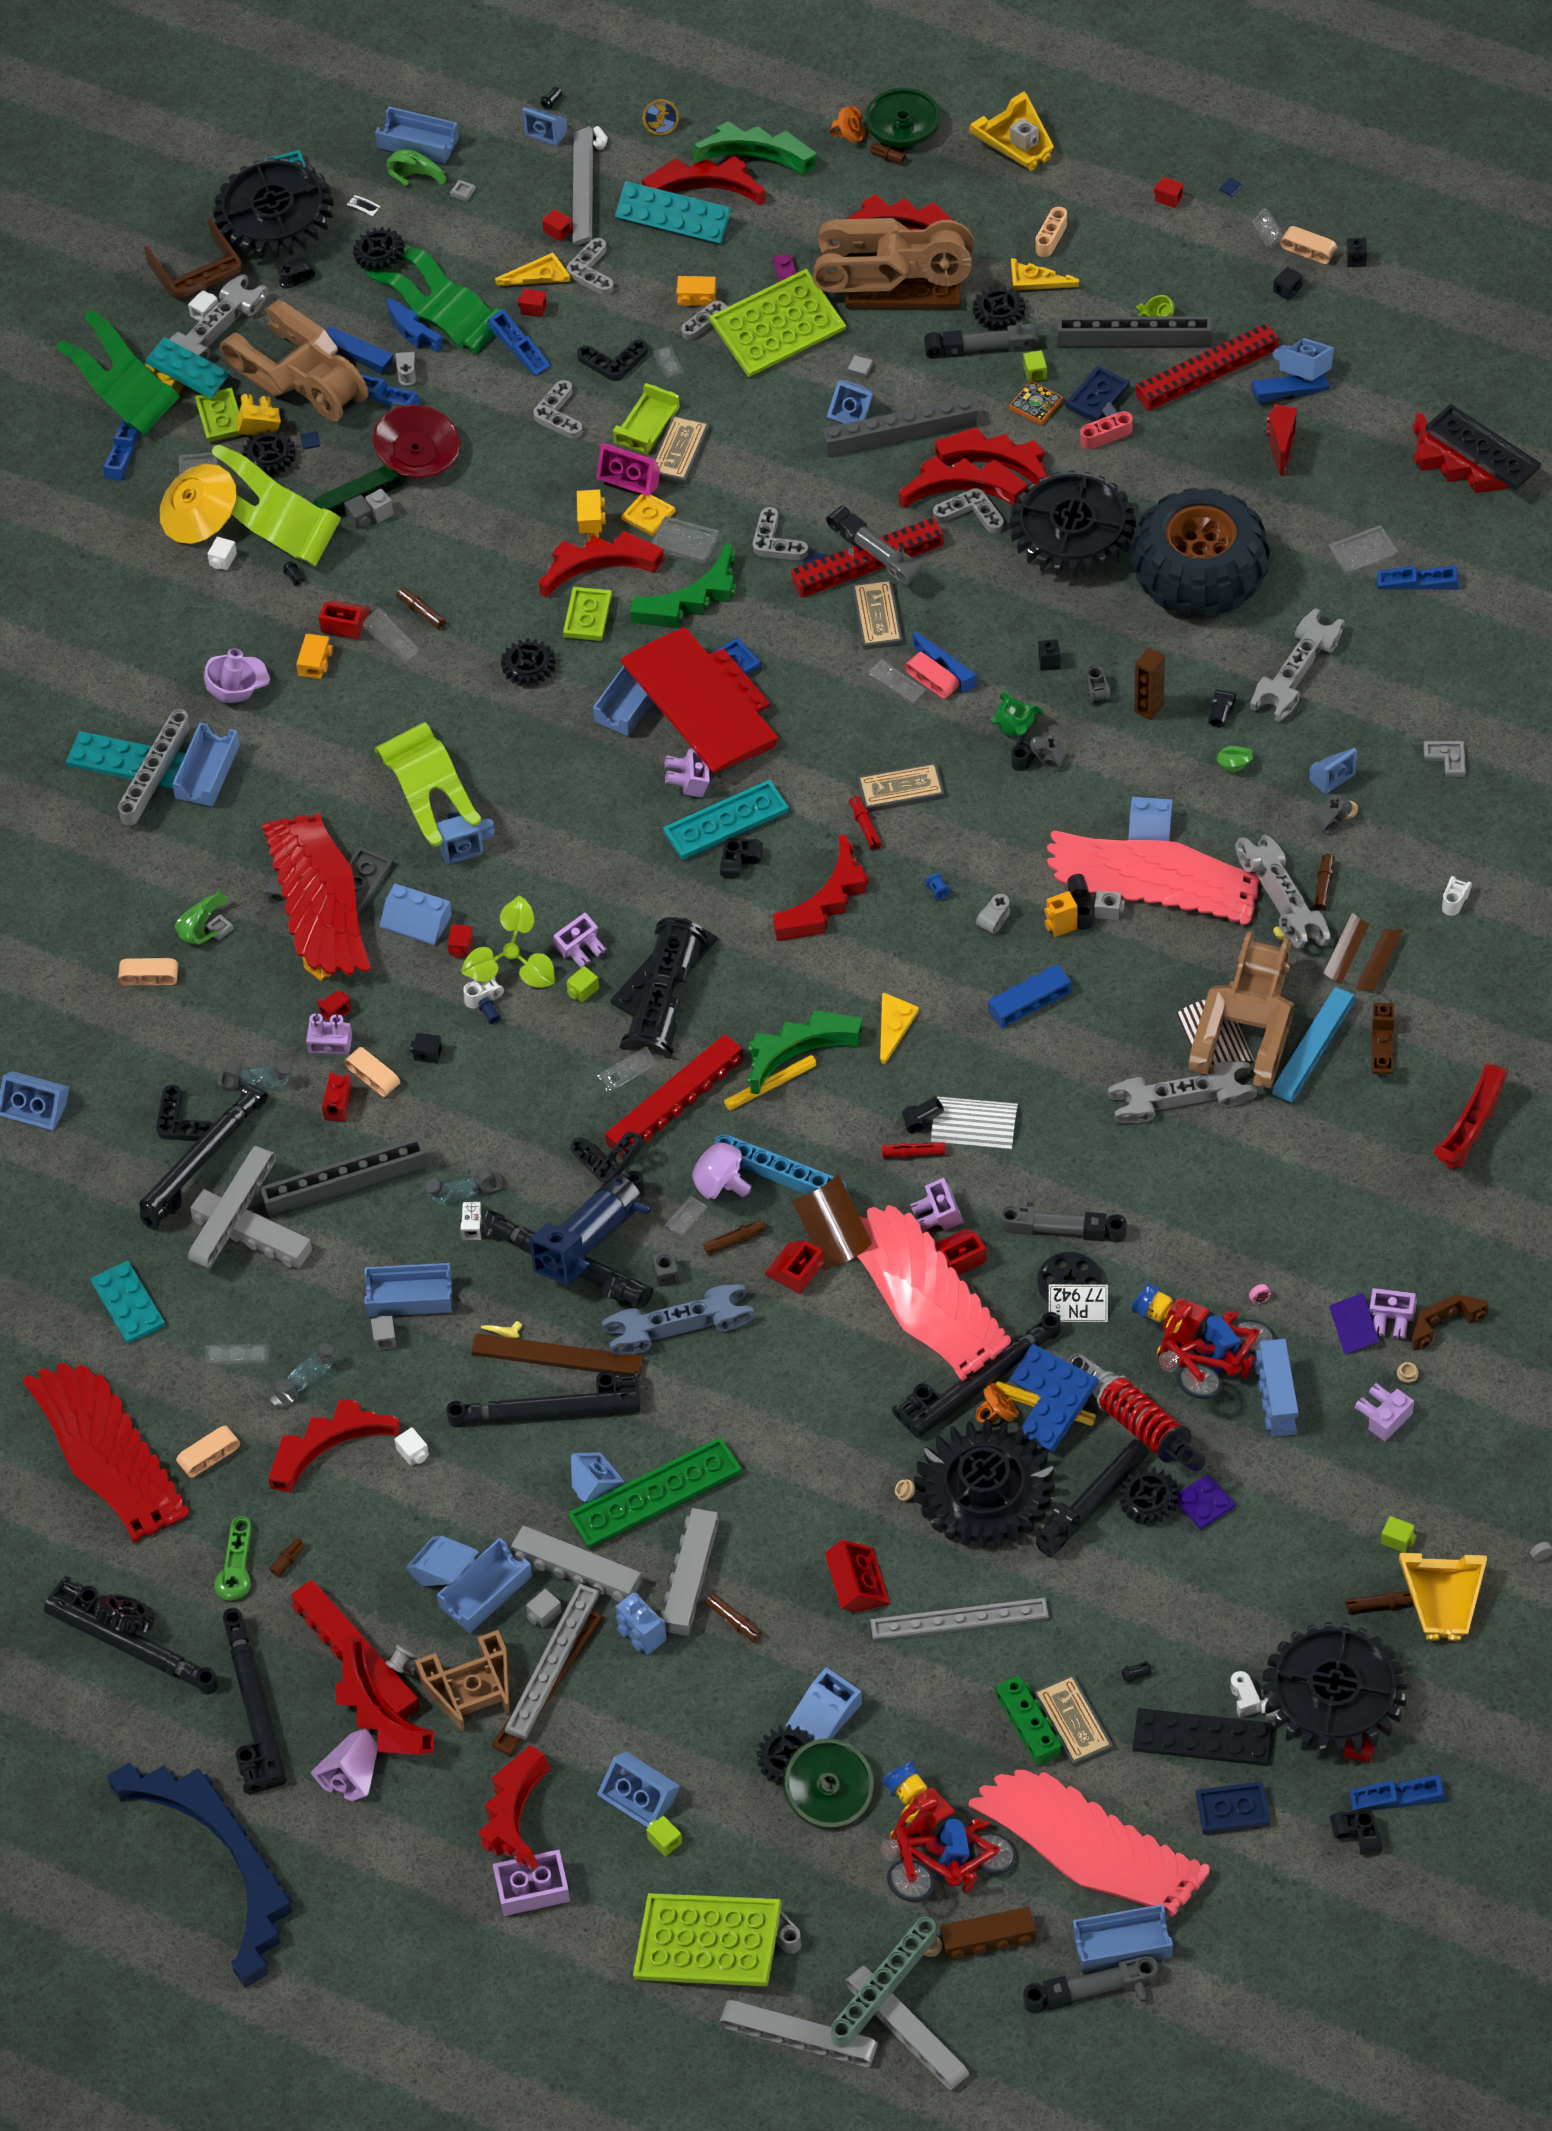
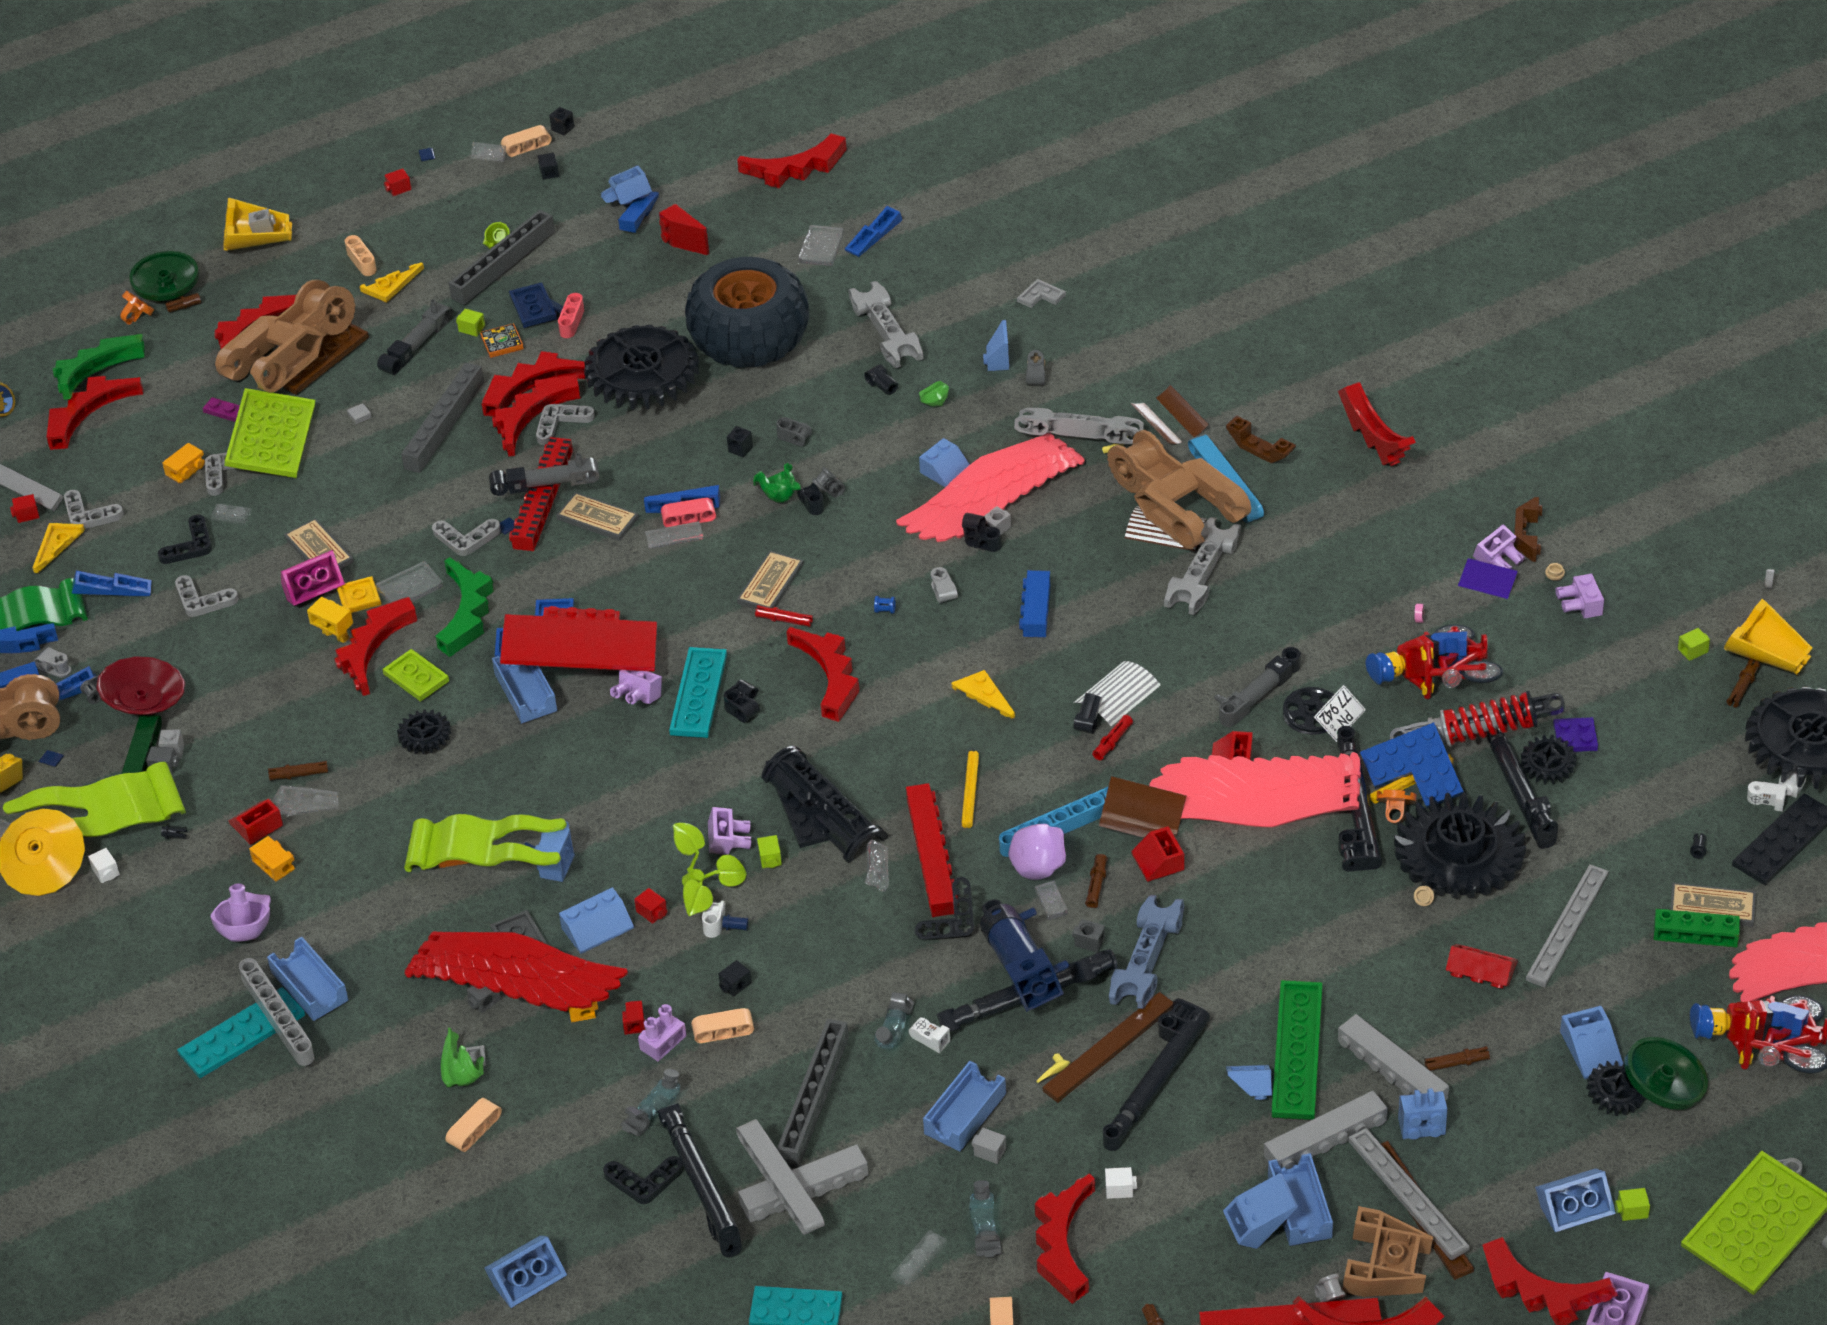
camera: 55 degrees left, 10 degrees down
(268, 448) = (36, 779): black gear -> none
(337, 1095) = (727, 1059): red brick -> none
(532, 302) = (82, 558): red brick -> none
(543, 1609) = (1351, 1174): light grey brick -> none
(647, 419) = (268, 549): lime panel -> none
(673, 212) = (95, 438): teal plate -> none
(821, 1031) = (951, 738): green arch -> none
(849, 402) = (391, 431): medium blue slope -> none
(942, 1202) = (1182, 741): lavender brick -> none
(997, 303) = (396, 315): black gear -> none
(1061, 914) = (986, 550): light orange brick -> none
(1149, 683) = (836, 392): reddish brown brick -> none
(1206, 367) = (573, 240): red brick -> none
(1276, 1387) = (1517, 639): medium blue brick -> none
(1325, 875) = (1083, 401): reddish brown pin -> none
(1455, 895) = (1166, 346): white piece -> none
(1483, 447) = (805, 139): black plate -> none

